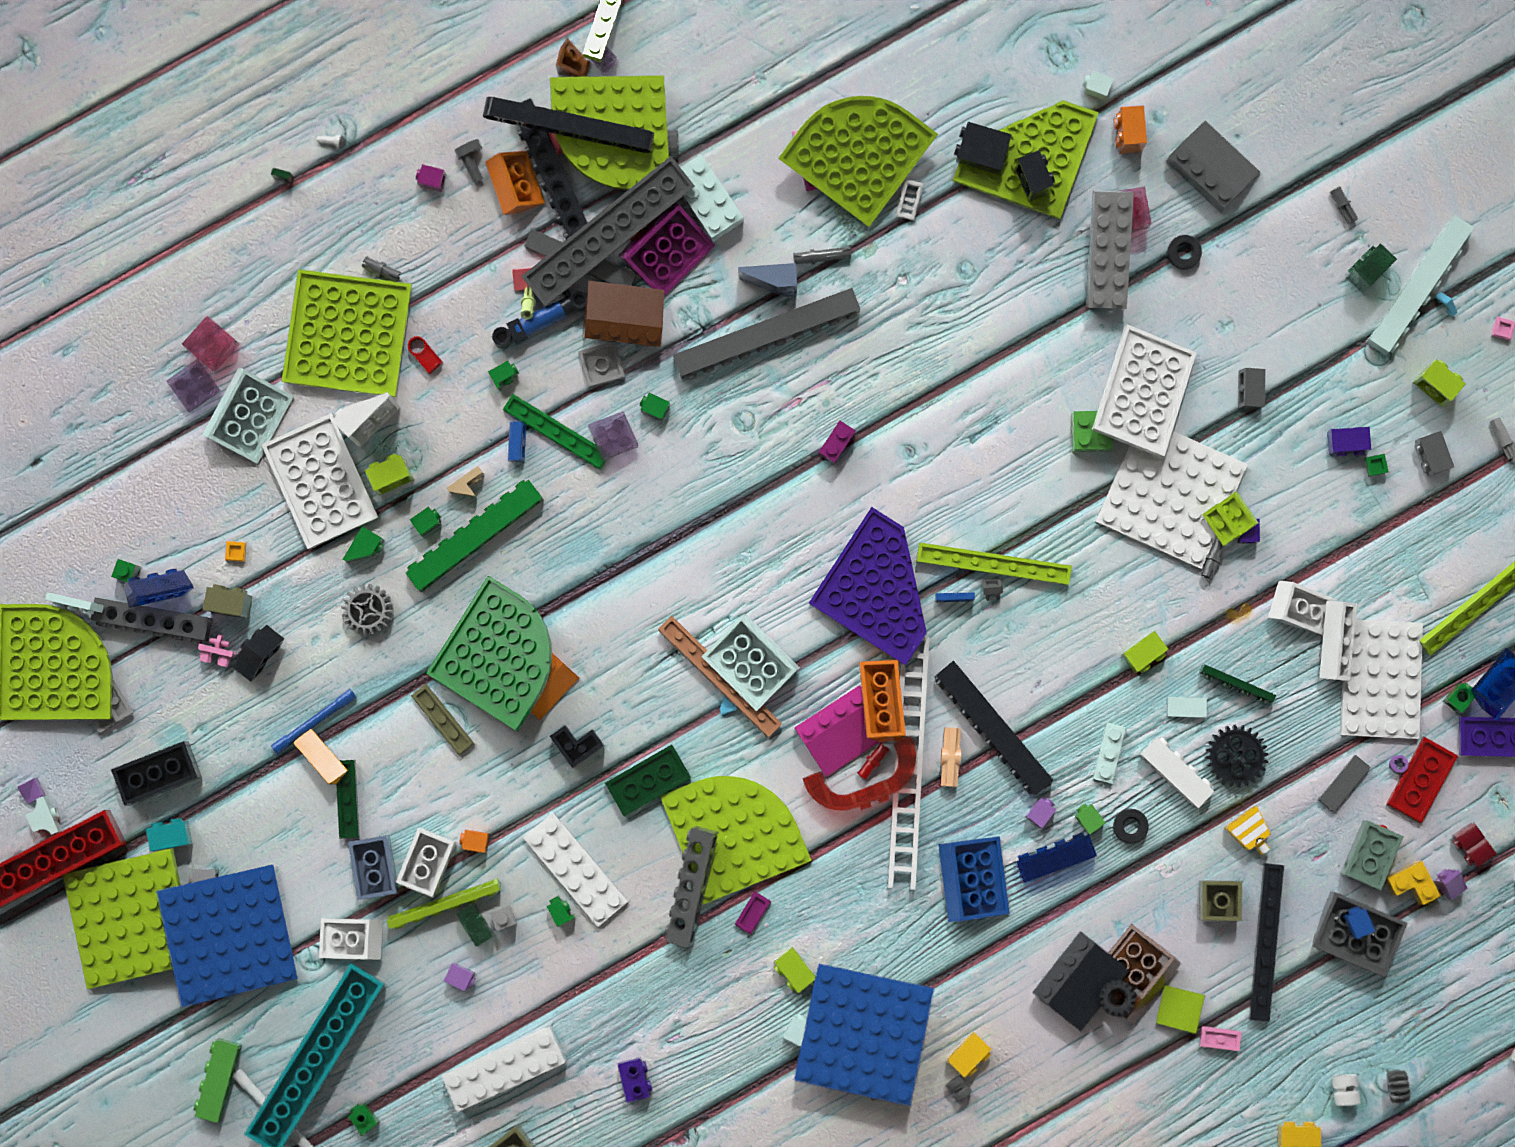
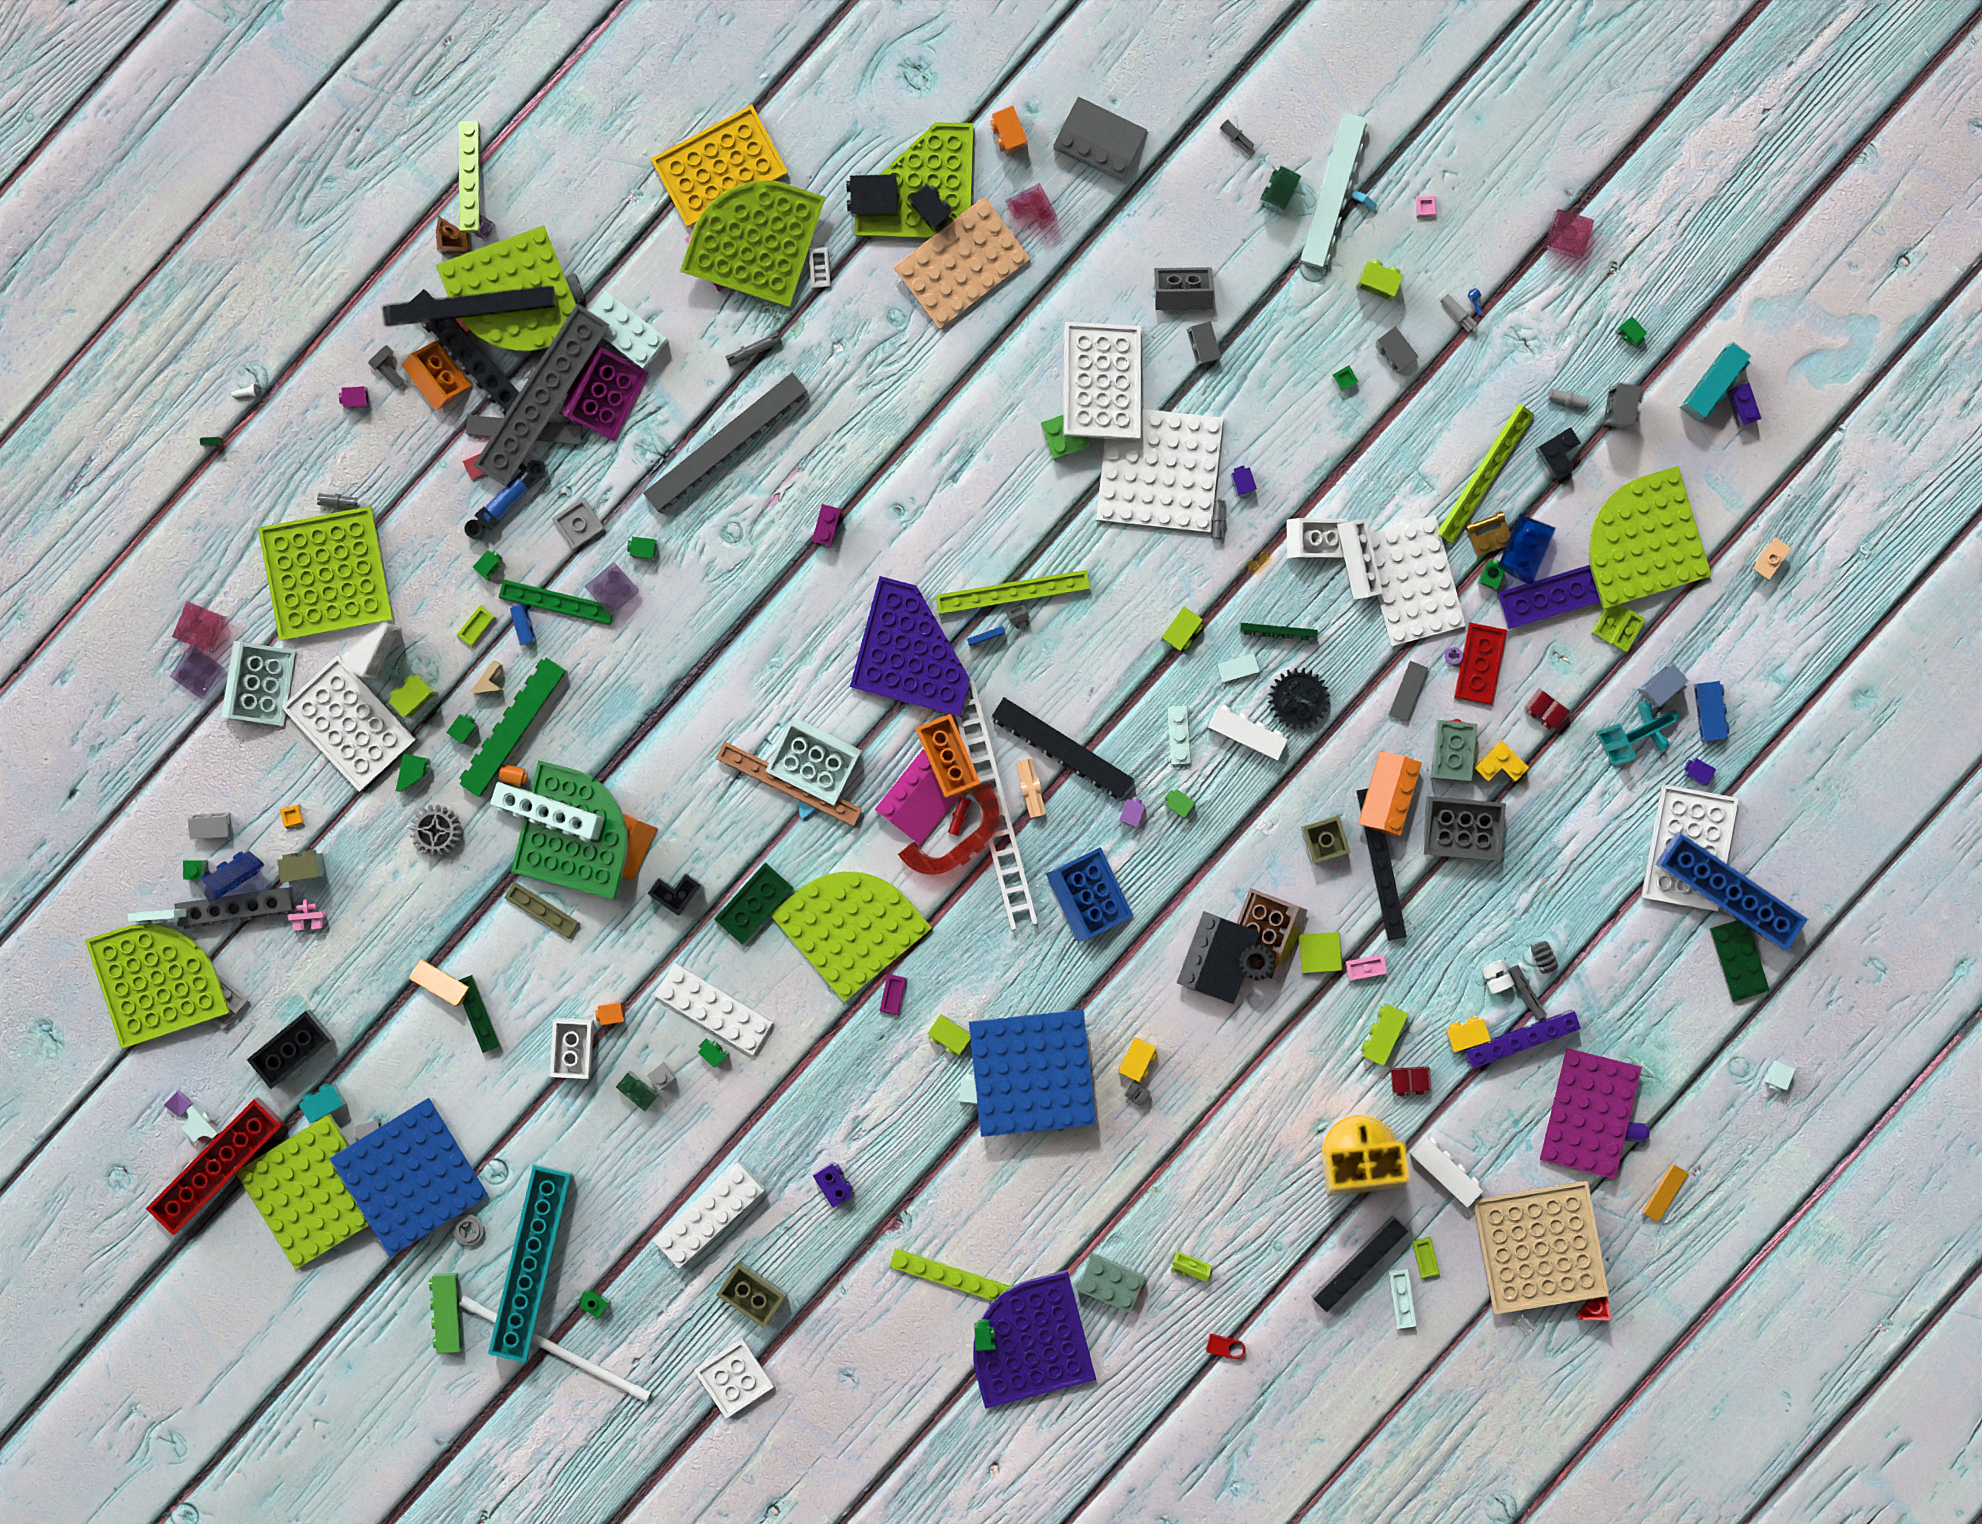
camera: 25 degrees left, 5 degrees up
(154, 534) = (209, 825): none -> light grey hinge
(257, 652) = (345, 904): black brick -> none
(257, 1006) = (460, 1233): none -> light grey gear
(288, 739) = (438, 927): blue piece -> none
(350, 939) = (525, 1142): white slope -> none
(373, 867) = (524, 1069): sand blue brick -> none
(426, 357) = (409, 572): red piece -> none
(437, 906) = (595, 1086): lime plate -> none
(445, 596) = (591, 823): none -> light aqua brick
(459, 582) = (513, 775): none -> orange brick
(460, 977) = (639, 1143): medium lavender brick -> none
(472, 429) = (476, 625): none -> lime tile
(528, 303) = (488, 489): yellowish green axle -> none
(623, 314) = (583, 469): reddish brown slope -> none
(707, 839) = (827, 941): dark grey brick -> none
(774, 278) = (715, 387): sand blue slope -> none
(844, 68) = (716, 161): none -> yellow plate
(1040, 238) = (961, 262): none -> light nougat plate
(1055, 858) = (1159, 850): clear blue brick -> none
(1097, 85) = (963, 96): light aqua brick -> none
(1109, 249) = (1025, 255): light grey brick -> none
(1125, 837) = (1232, 797): black tyre -> none
(1181, 263) = (1099, 243): black tyre -> none
(1217, 1109) = (1383, 1034): none -> lime brick
(1230, 518) = (1222, 476): lime slope -> none
(1248, 331) = (1183, 288): none -> dark grey slope
(1250, 830) = (1333, 764): yellow torso -> none
(1297, 876) = (1389, 793): none -> slope
(1349, 440) = (1312, 363): dark purple brick -> none
(1359, 922) = (1459, 818): blue brick -> none
(1370, 1115) = (1527, 992): none -> dark grey pin
(1450, 883) = (1535, 752): medium lavender slope -> none
(1468, 664) = (1491, 540): none -> pearl gold plate

